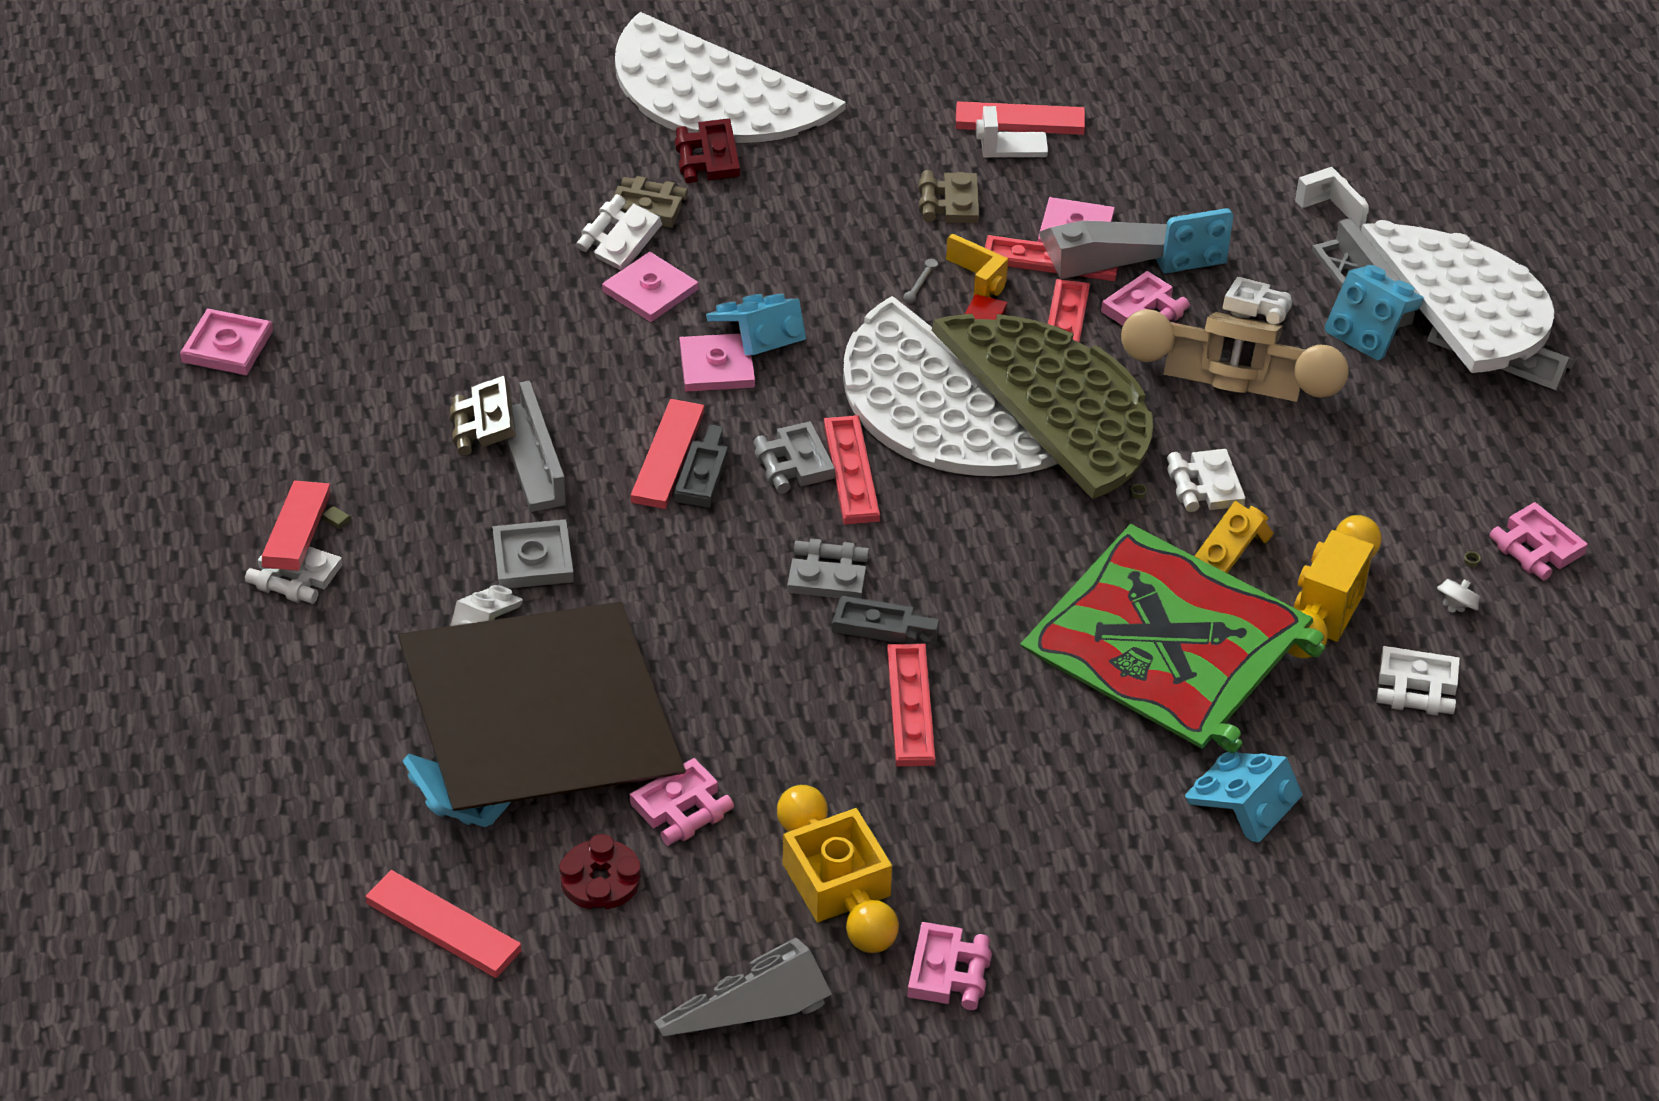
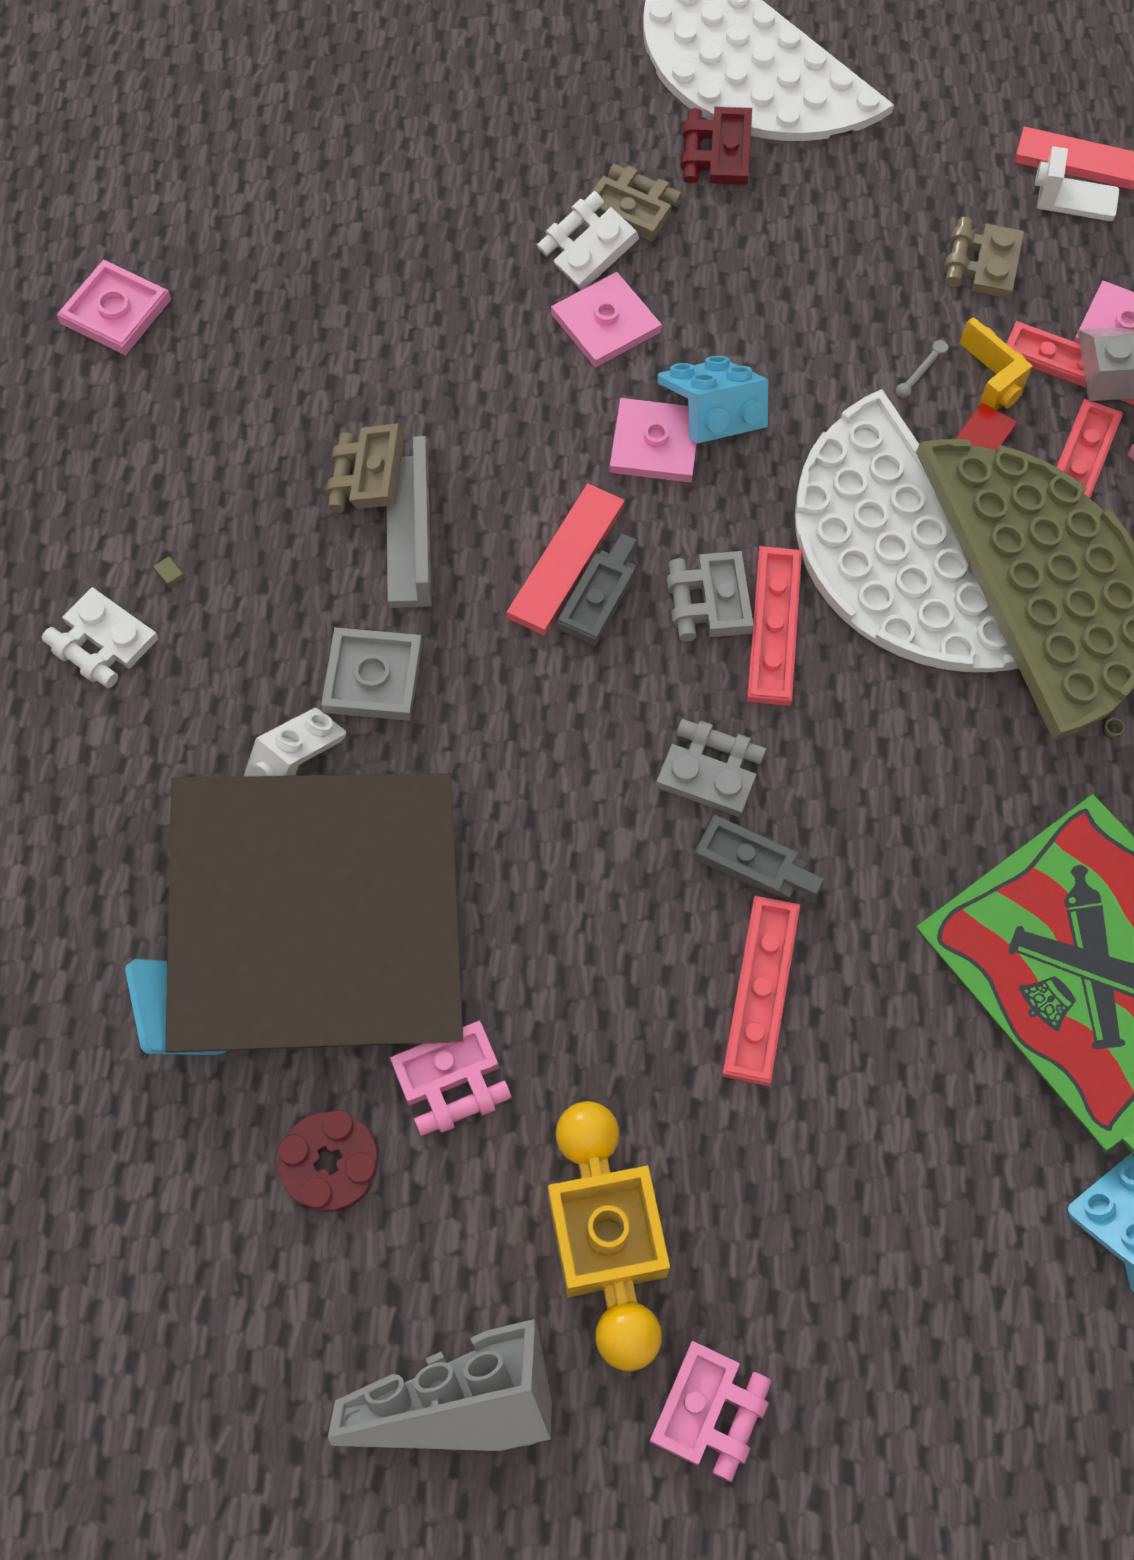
camera: 15 degrees right, 20 degrees up
(296, 525) = (112, 582): coral tile -> none
(443, 923) = (128, 1193): coral tile -> none

